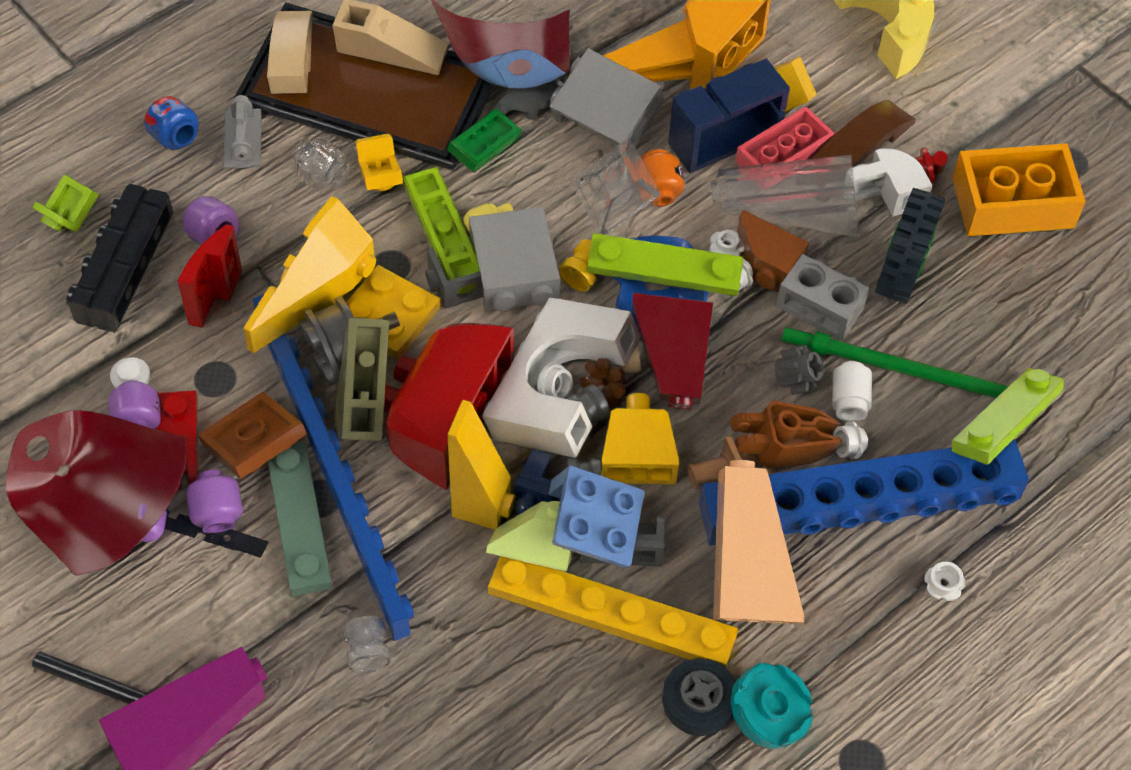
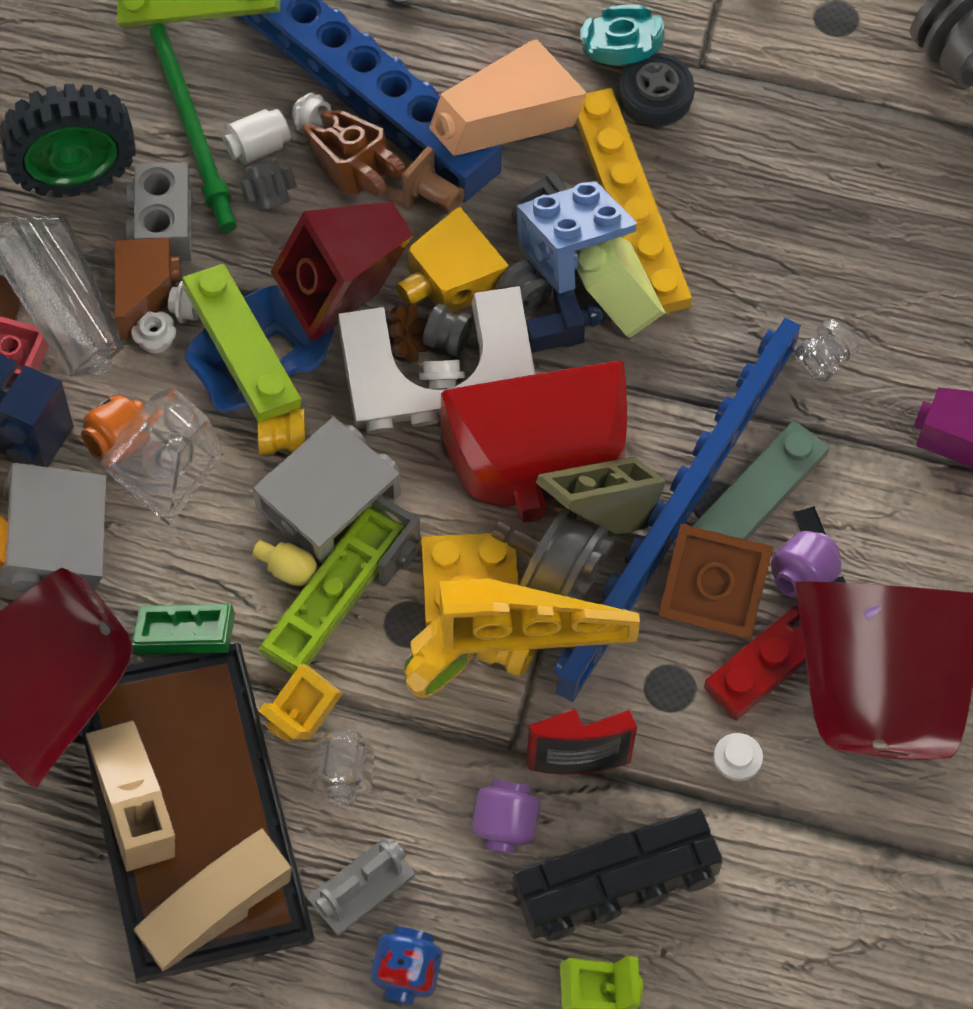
camera: 125 degrees left, 5 degrees up
(135, 403) = (776, 713): medium lavender head -> none
(477, 475) = (616, 332): yellow wedge -> none

